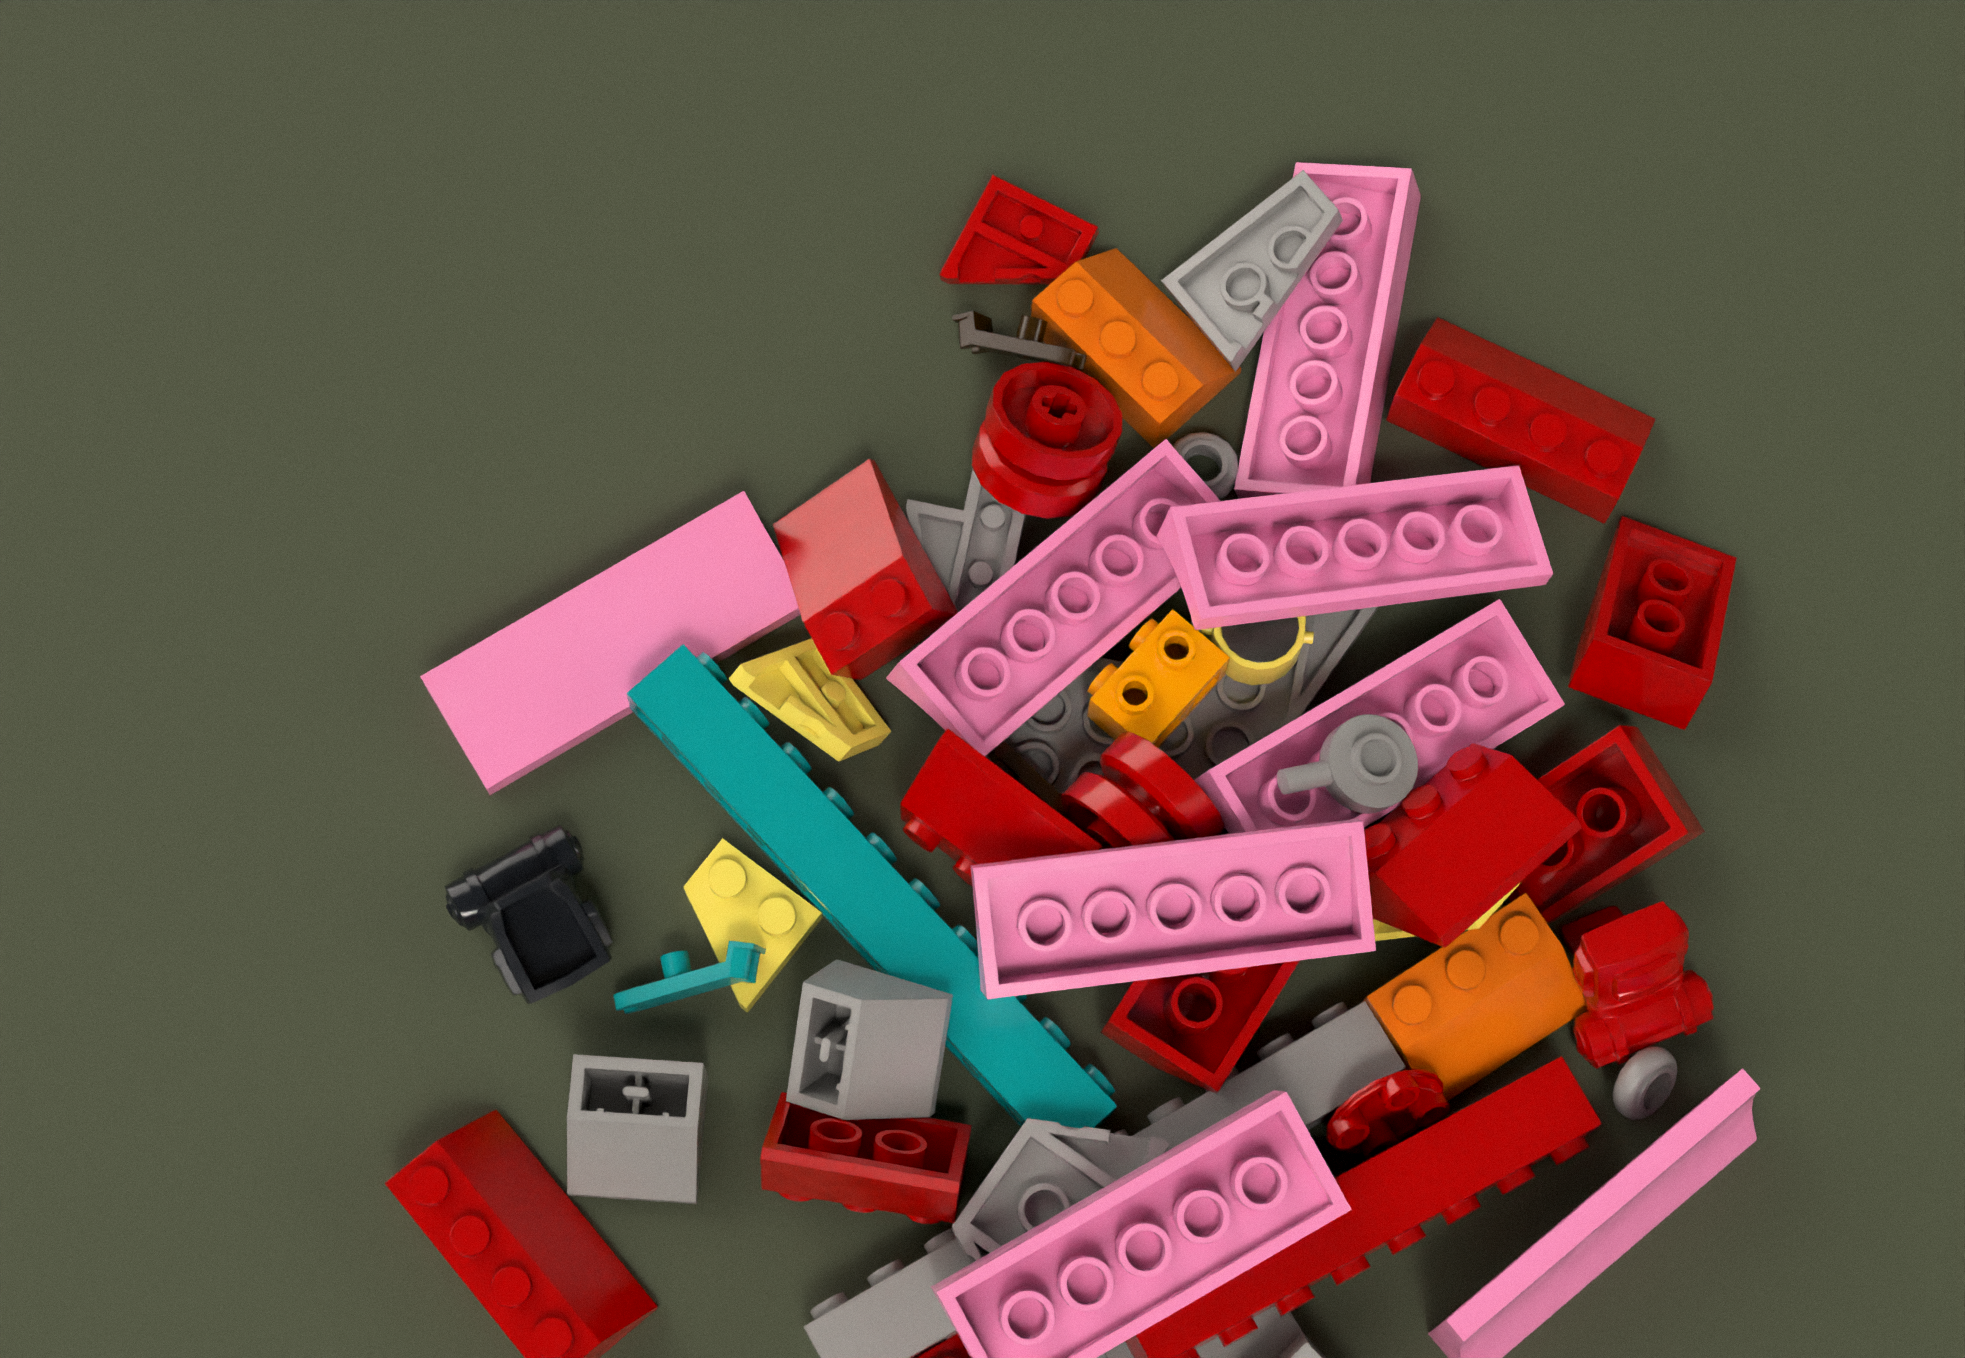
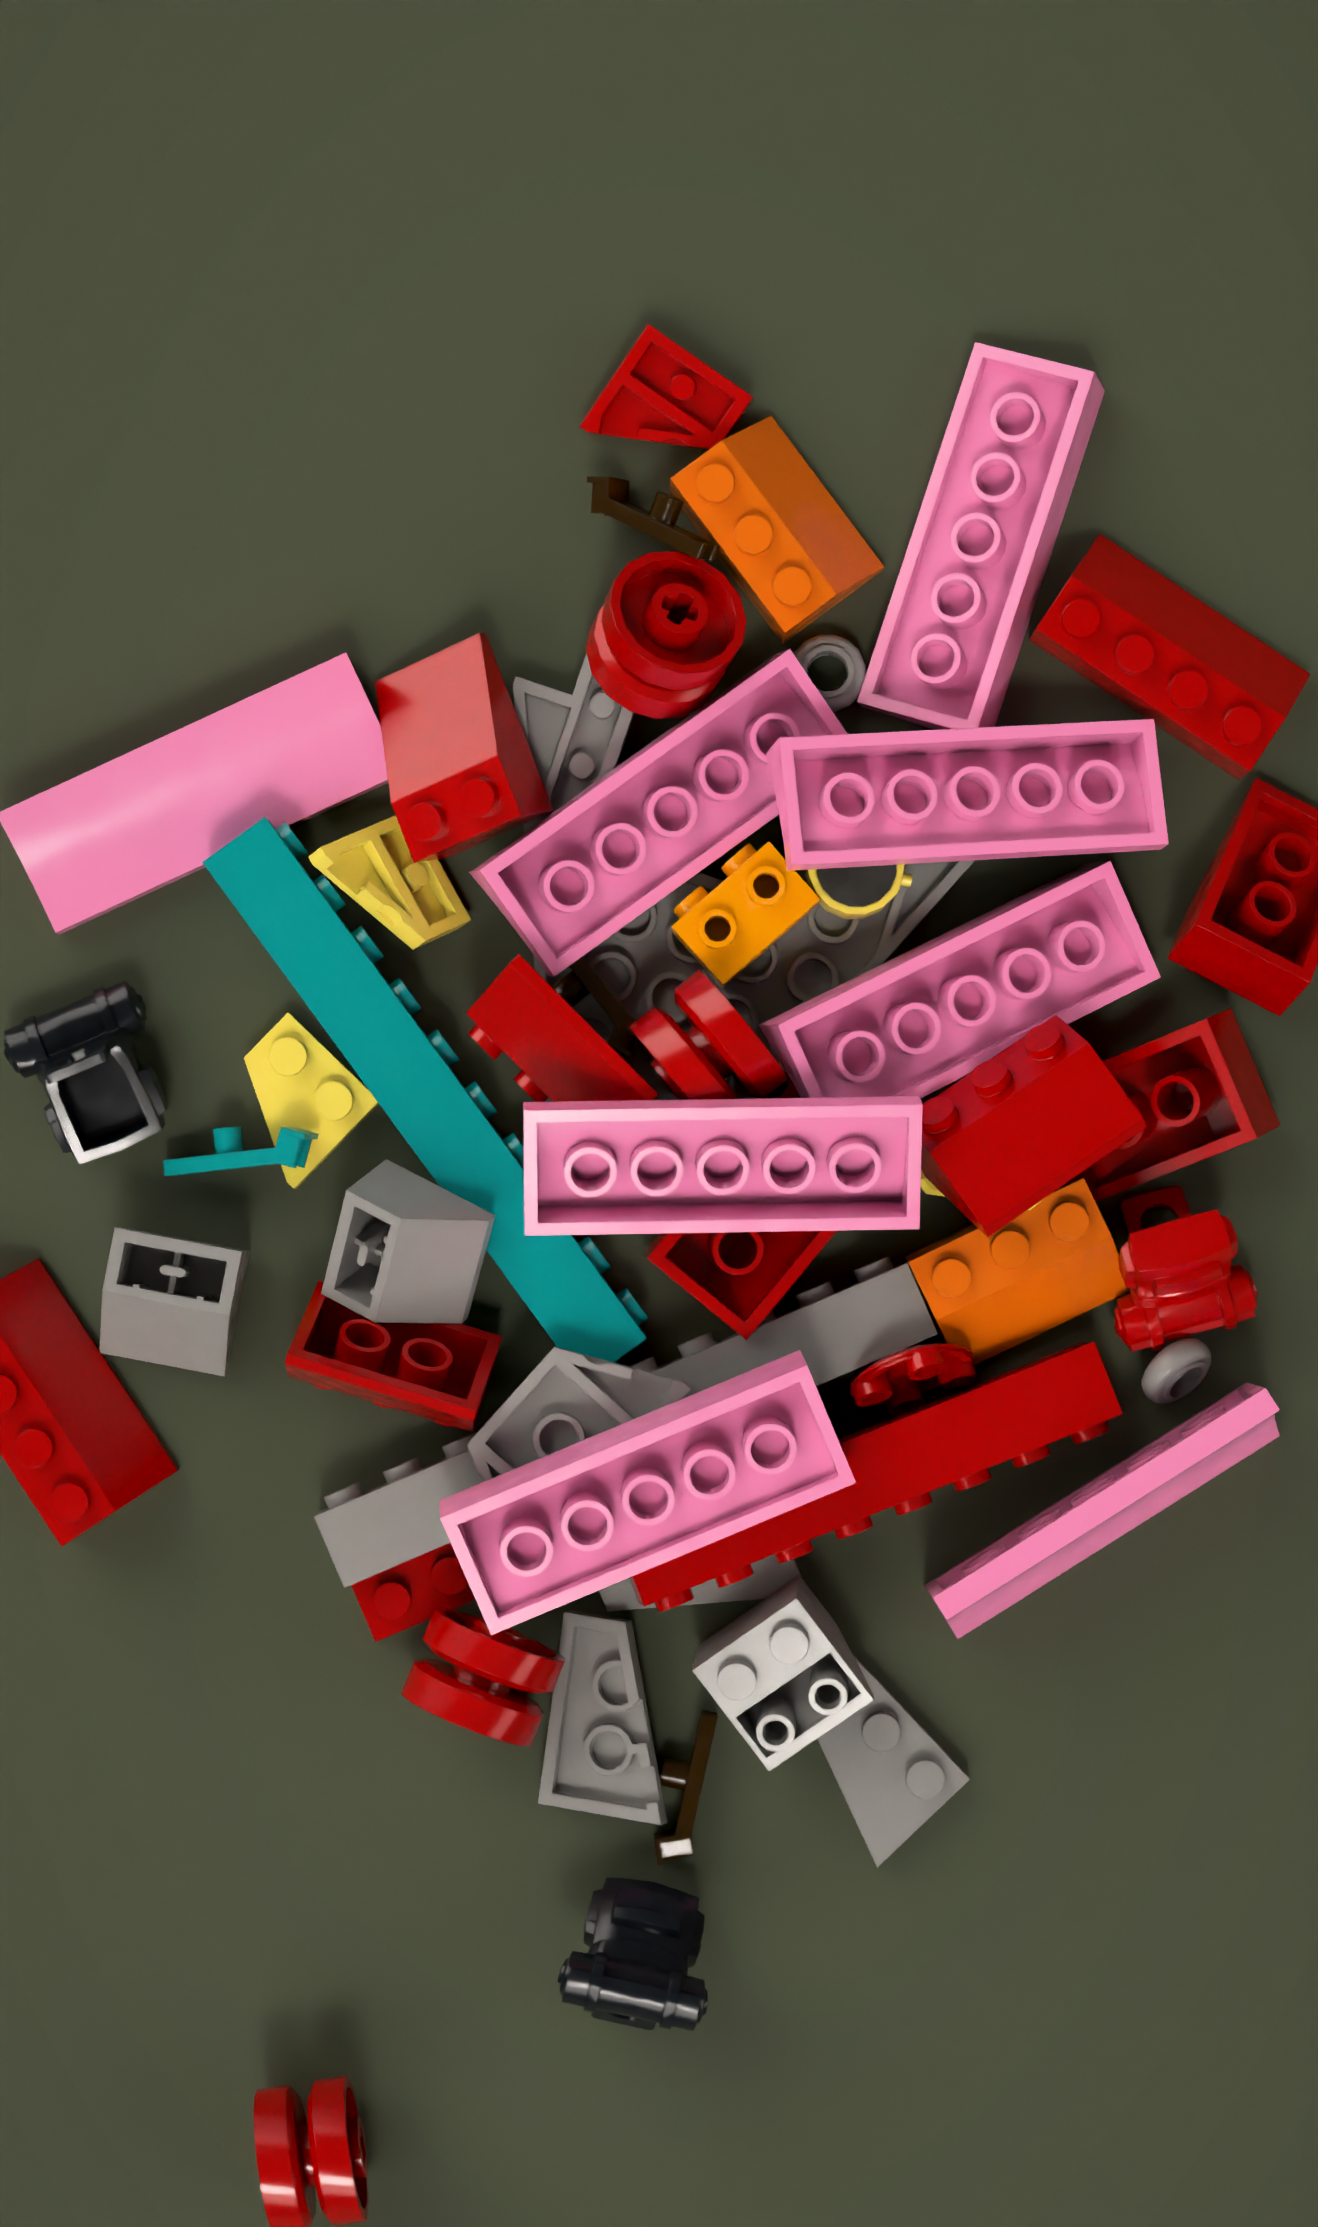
camera: 10 degrees right, 15 degrees up
(1254, 266) = (911, 460): light grey wing -> none
(1362, 765) = (938, 1032): light grey piece -> none

